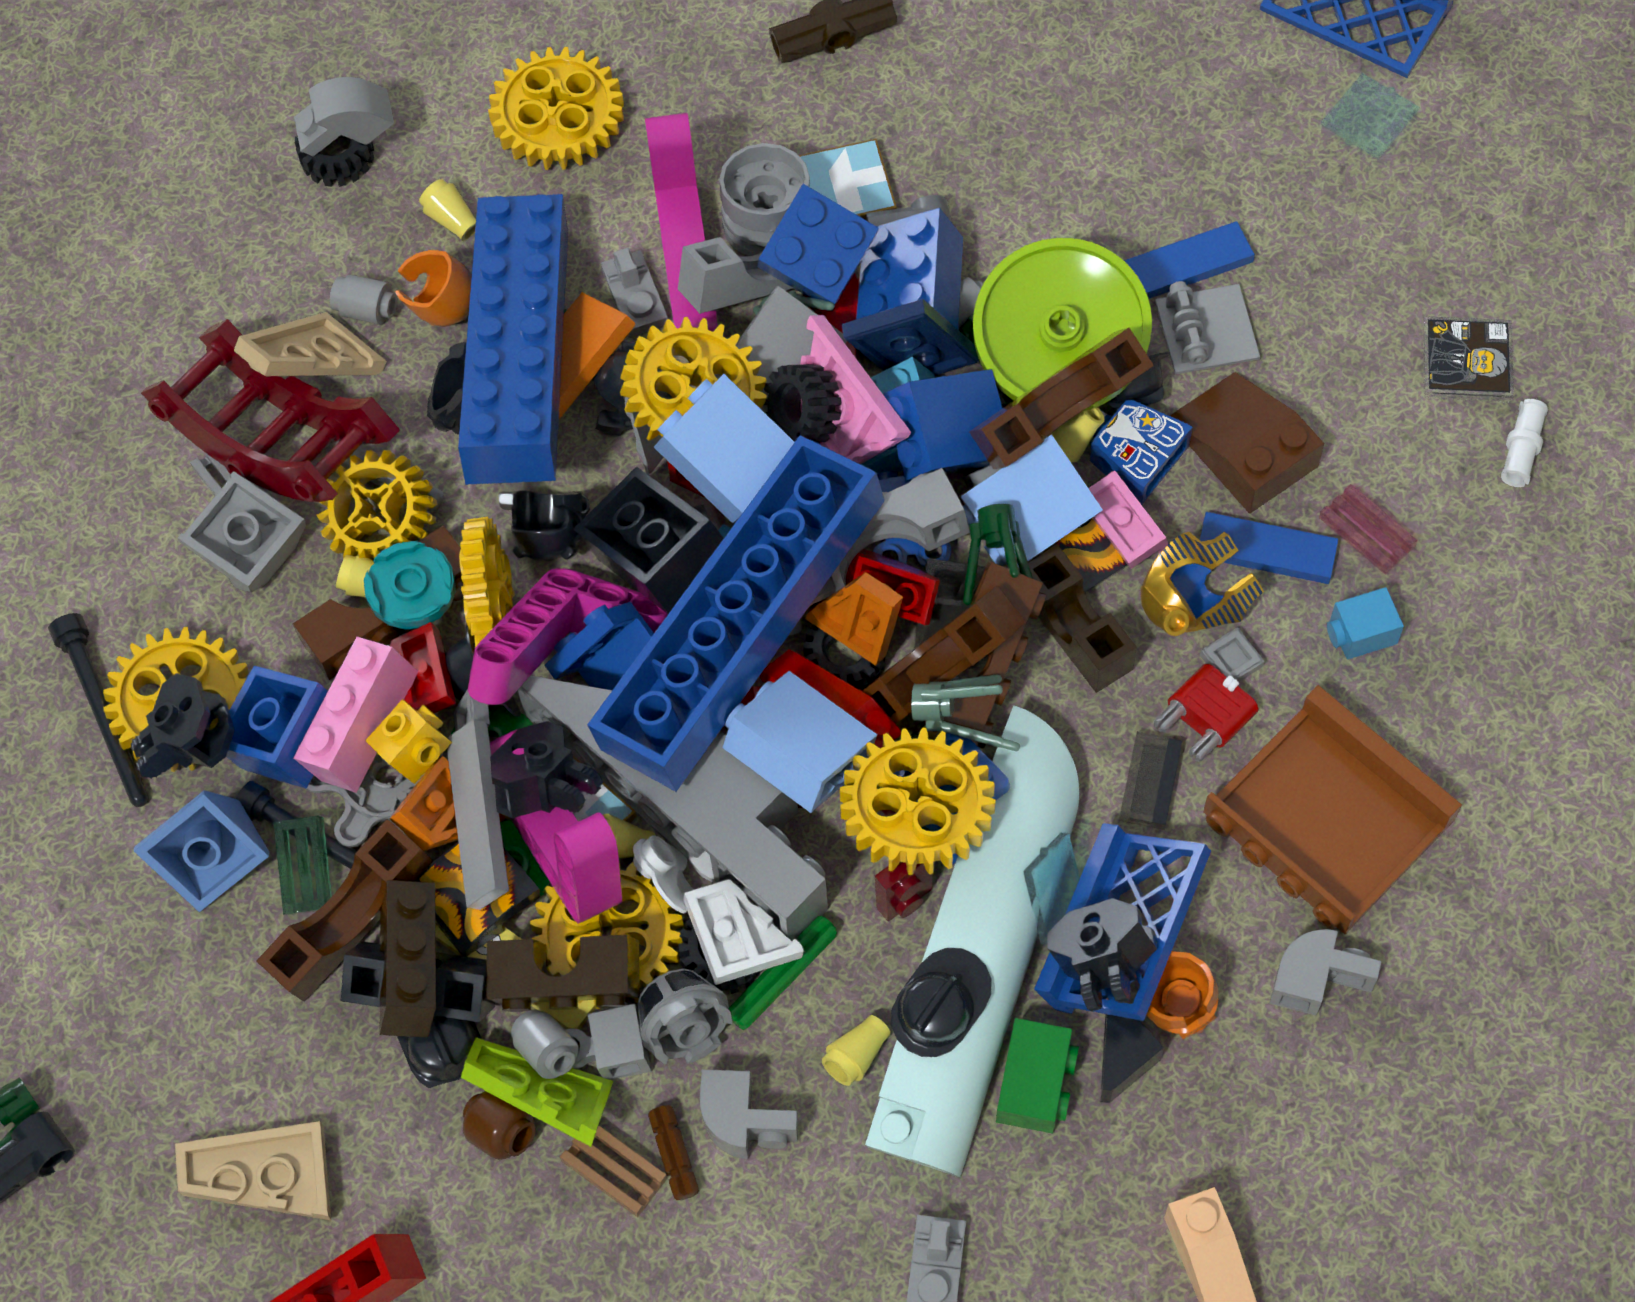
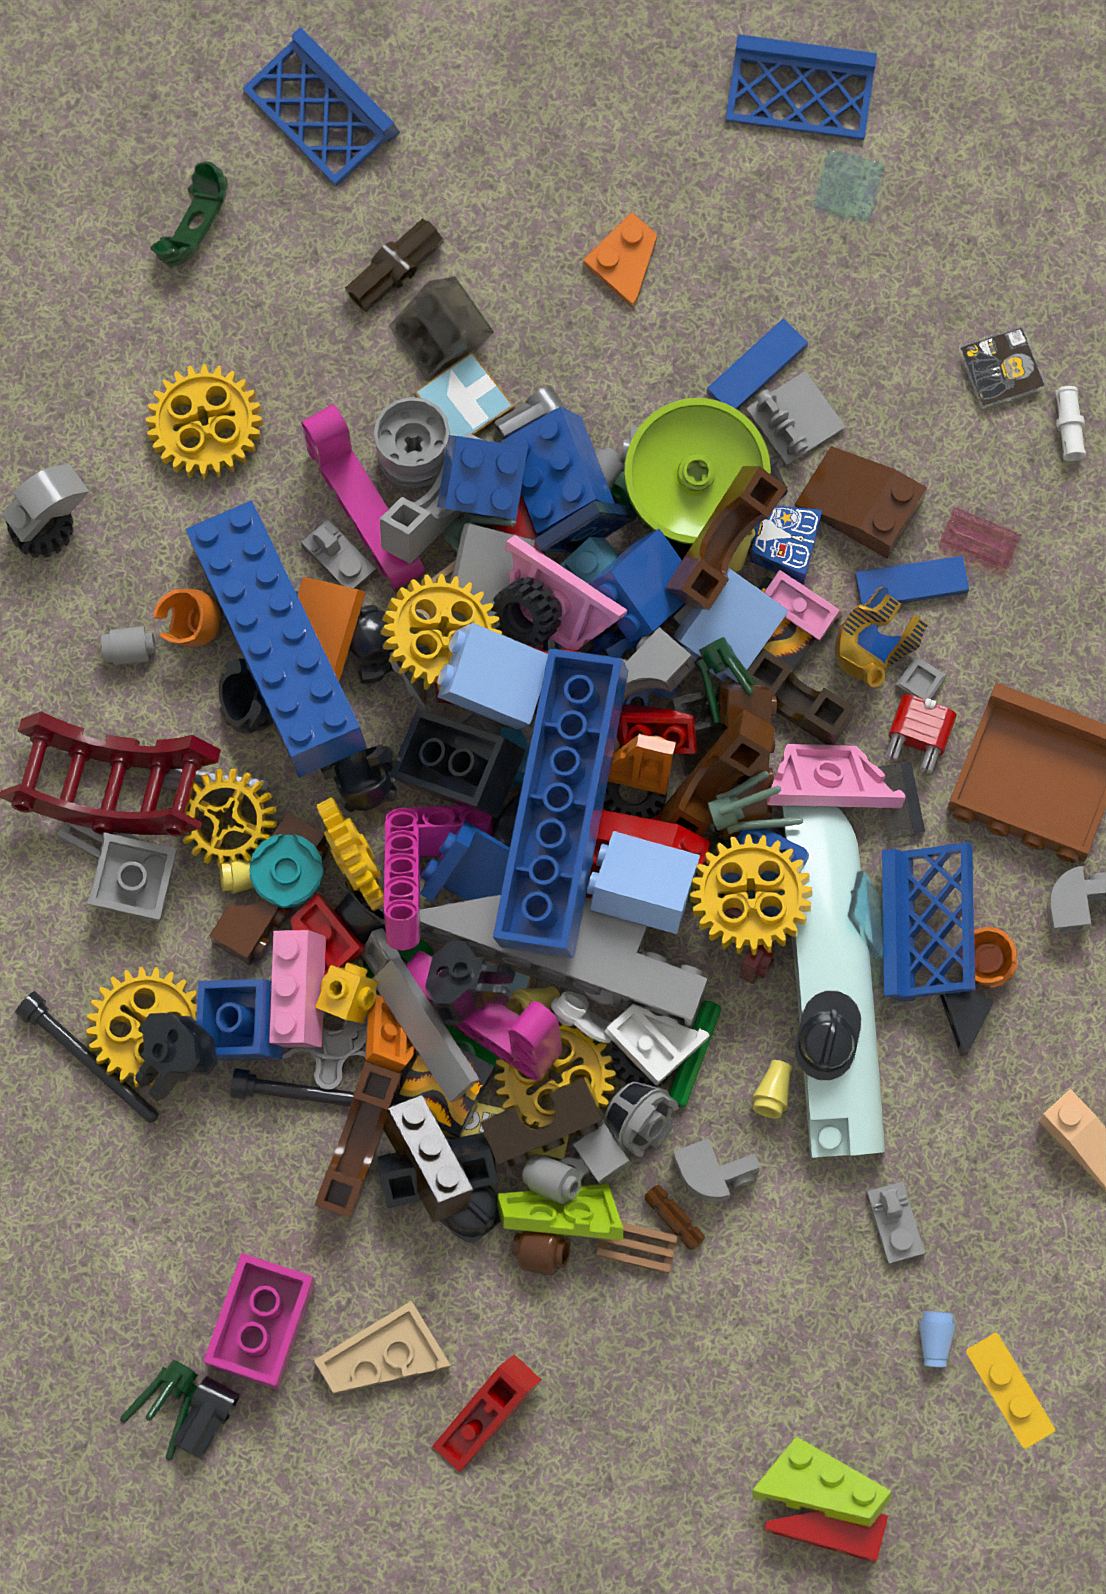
camera: 25 degrees left, 10 degrees up
(134, 1072) = (259, 1321): none -> dark pink brick
(204, 848) = (230, 1136): medium blue slope -> none
(309, 348) = (111, 707): tan wing -> none
(320, 860) = (316, 1107): clear green tile -> none
(447, 207) = (159, 542): light yellow cone -> none
(854, 99) = (440, 326): none -> clear smoke slope
(1035, 1076) = (909, 1057): green brick -> none
(1075, 718) = (831, 778): none -> bright pink wing
(1086, 103) = (624, 258): none -> orange wing
(1102, 952) = (929, 952): black hinge -> none
(1365, 623) = (1008, 617): dark azure brick -> none

